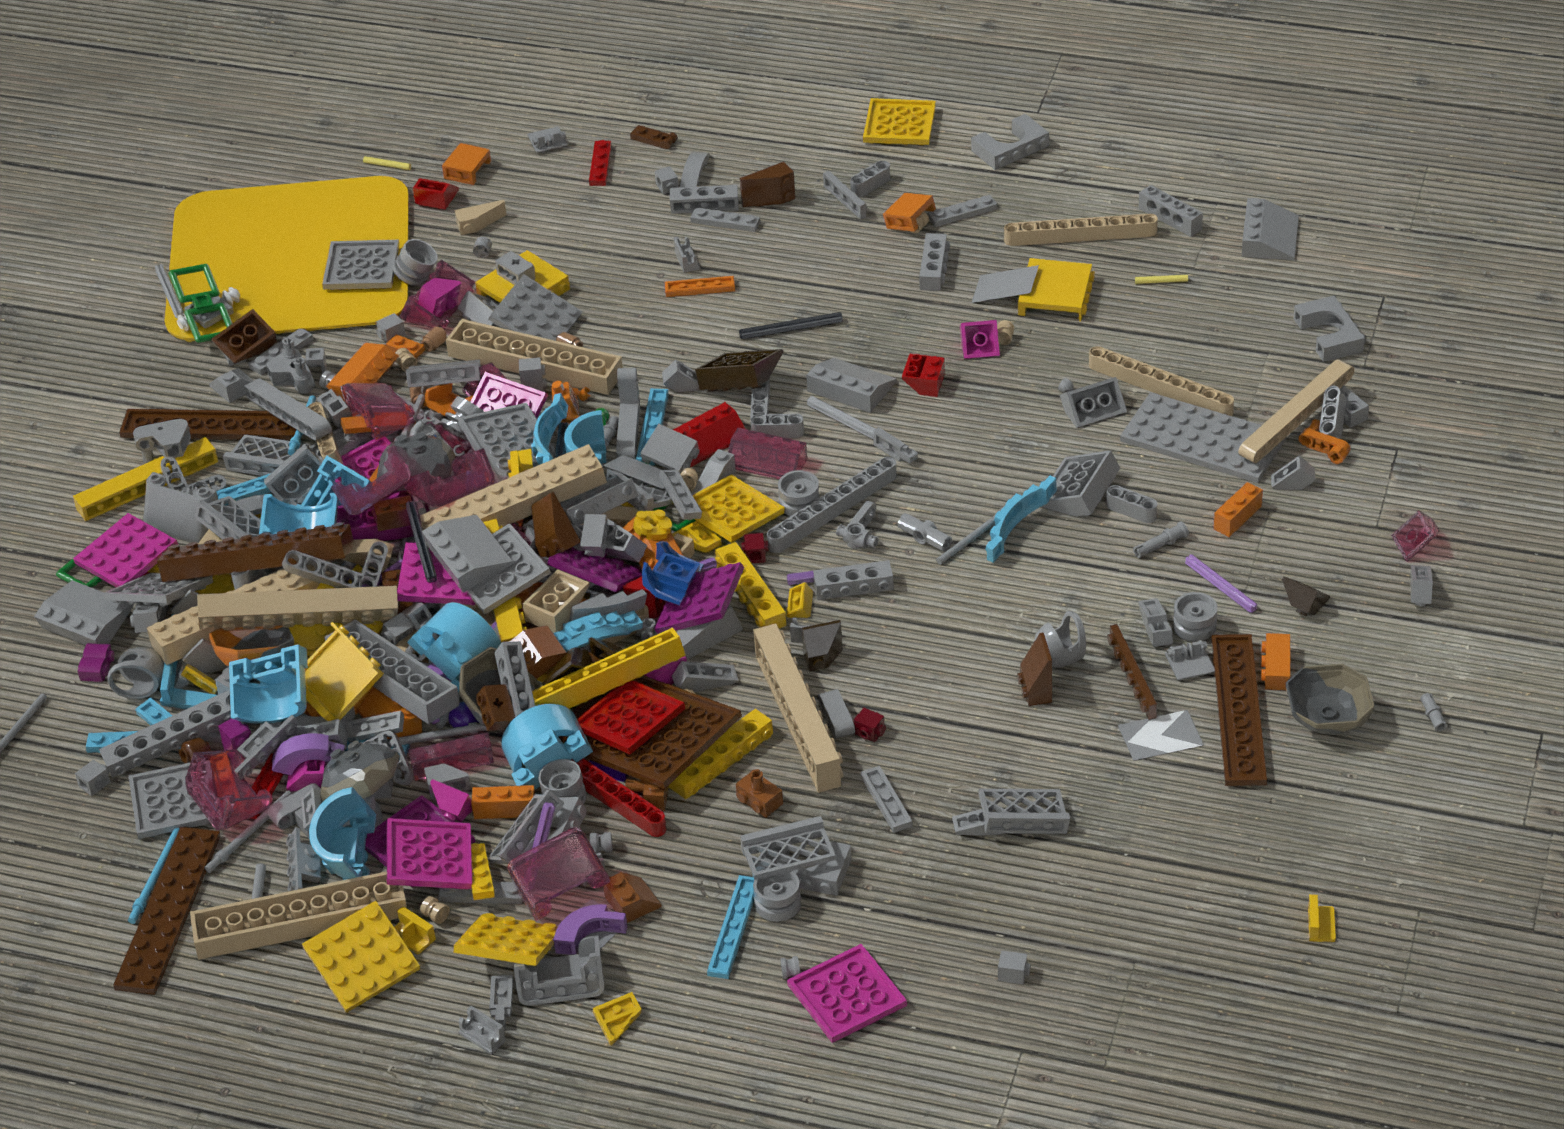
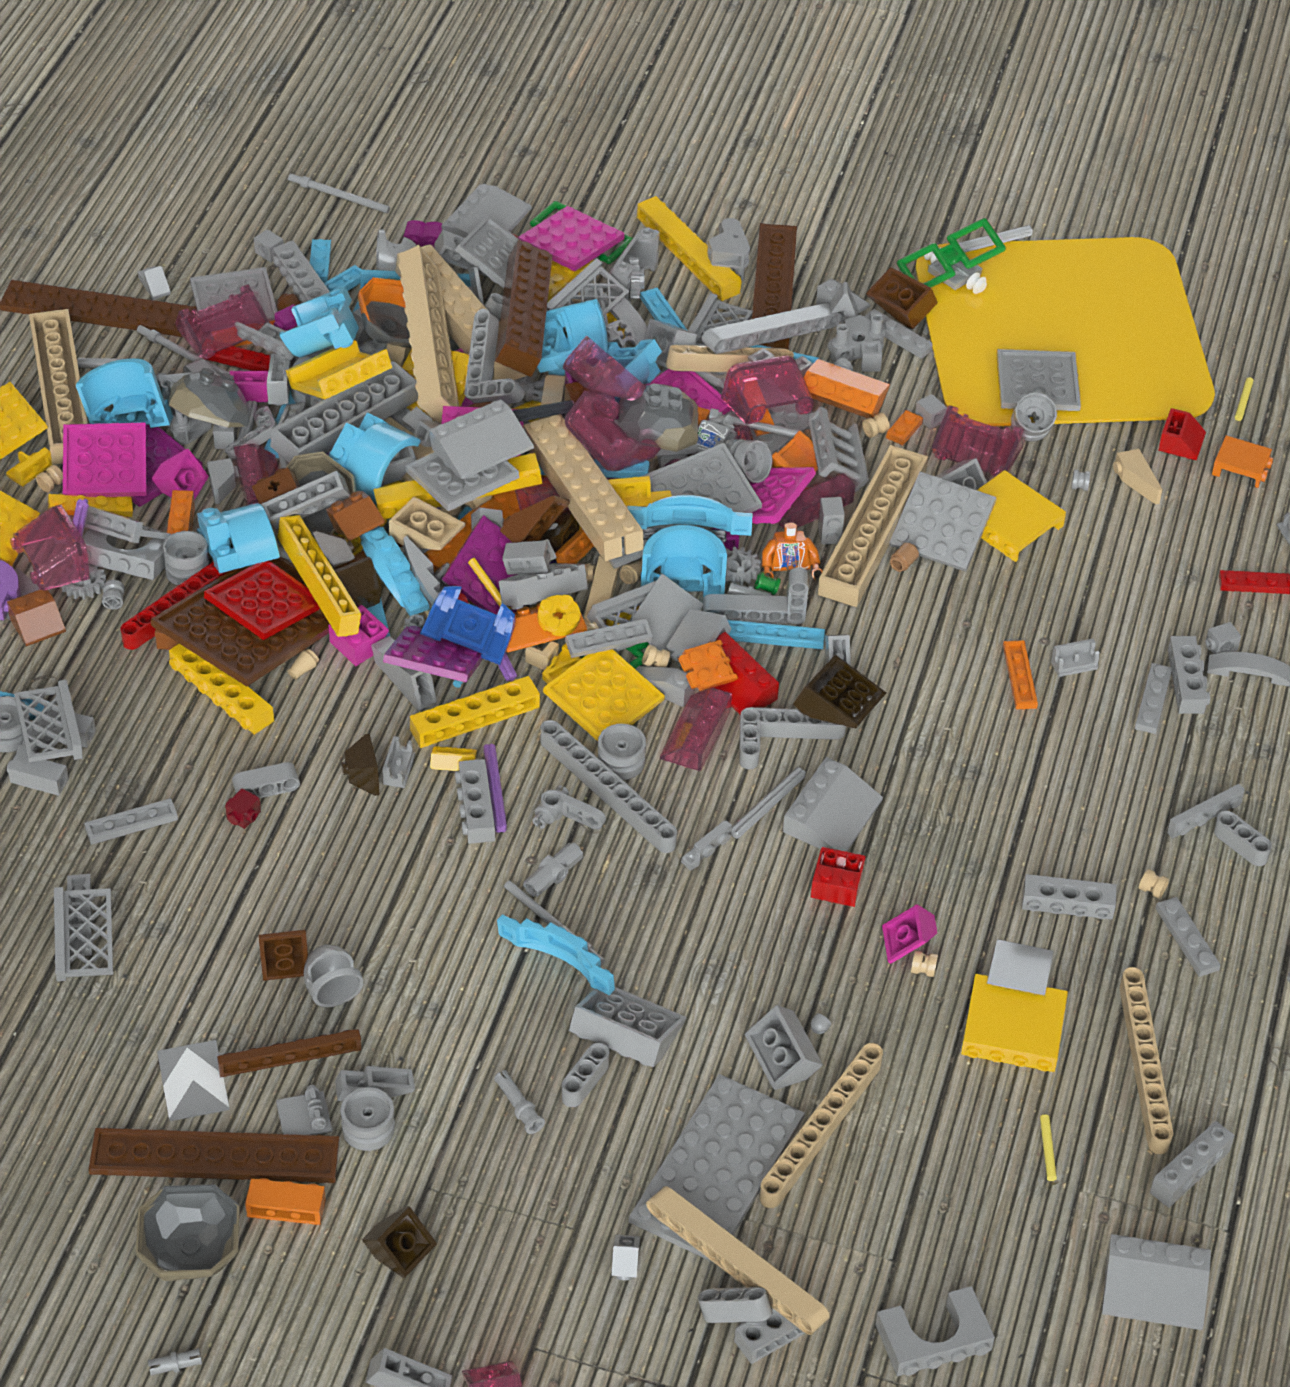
camera: 85 degrees right, 5 degrees up
(134, 867) = (154, 282): none -> slope
(140, 903) = (106, 288): medium azure bar -> none
(183, 485) = (668, 277): light grey beam -> none
(253, 368) = (844, 302): none -> light grey slope
(302, 749) = (253, 373): medium lavender arch -> none
(434, 339) = (913, 444): medium nougat brick -> none
(439, 295) = (965, 436): dark pink slope -> none
(513, 267) = (1017, 496): light grey brick -> none
(599, 499) = (591, 567): light grey fence -> none
(619, 565) = (486, 581): none -> yellow bar
(703, 676) = (337, 672): light grey slope -> none
(710, 438) = (707, 666): none -> orange plate
(755, 547) = (536, 713): dark red brick -> none
(759, 793) = (156, 715): dark orange brick -> none
(768, 186) = (1208, 731): reddish brown slope -> none
(791, 325) = (943, 757): black axle -> none
(798, 708) = (267, 741): tan brick -> none
(906, 210) = (1171, 870): orange panel -> none
(1222, 584) = (437, 1159): medium lavender axle -> none
(1238, 509) = (563, 1185): orange brick -> none
(1334, 447) = (678, 1313): orange beam -> none

